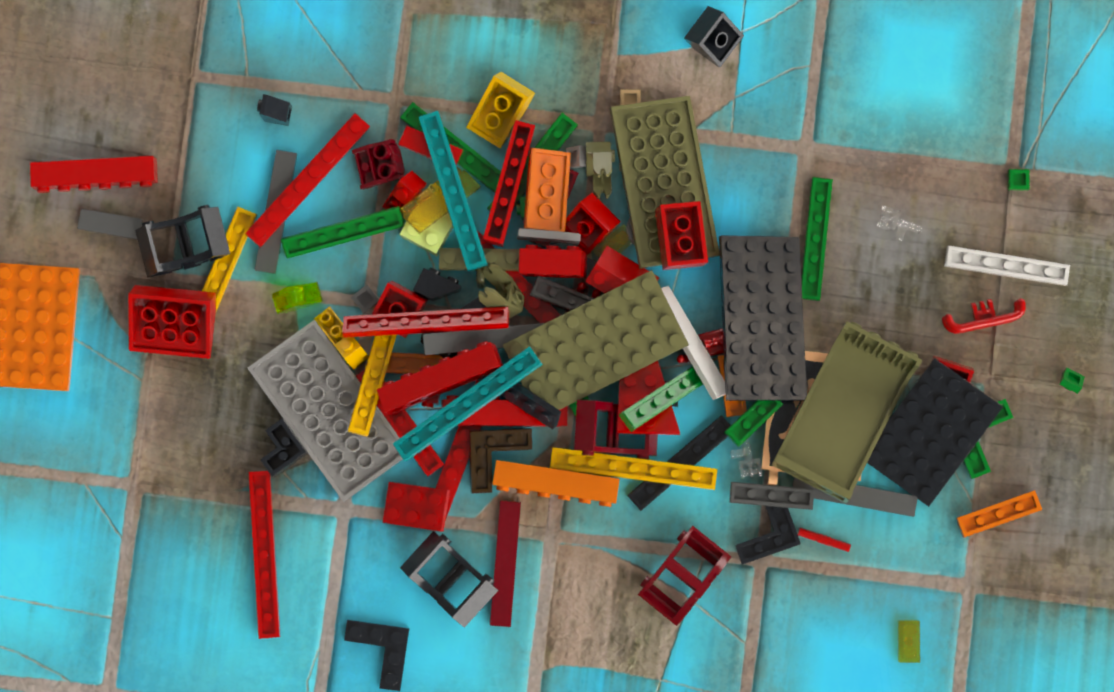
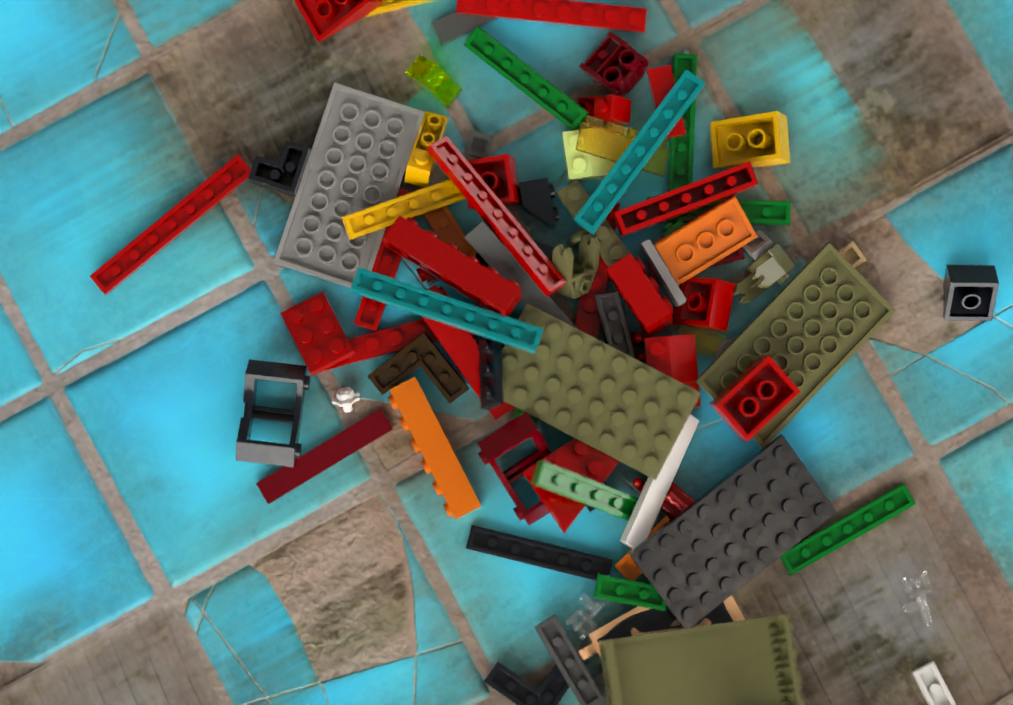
camera: 50 degrees right, 0 degrees up
(395, 644) = (178, 401): black plate -> none
(476, 519) = (345, 398): none -> white plant
(634, 468) = (501, 513): yellow plate -> none
(707, 550) = (394, 634): dark red window -> none

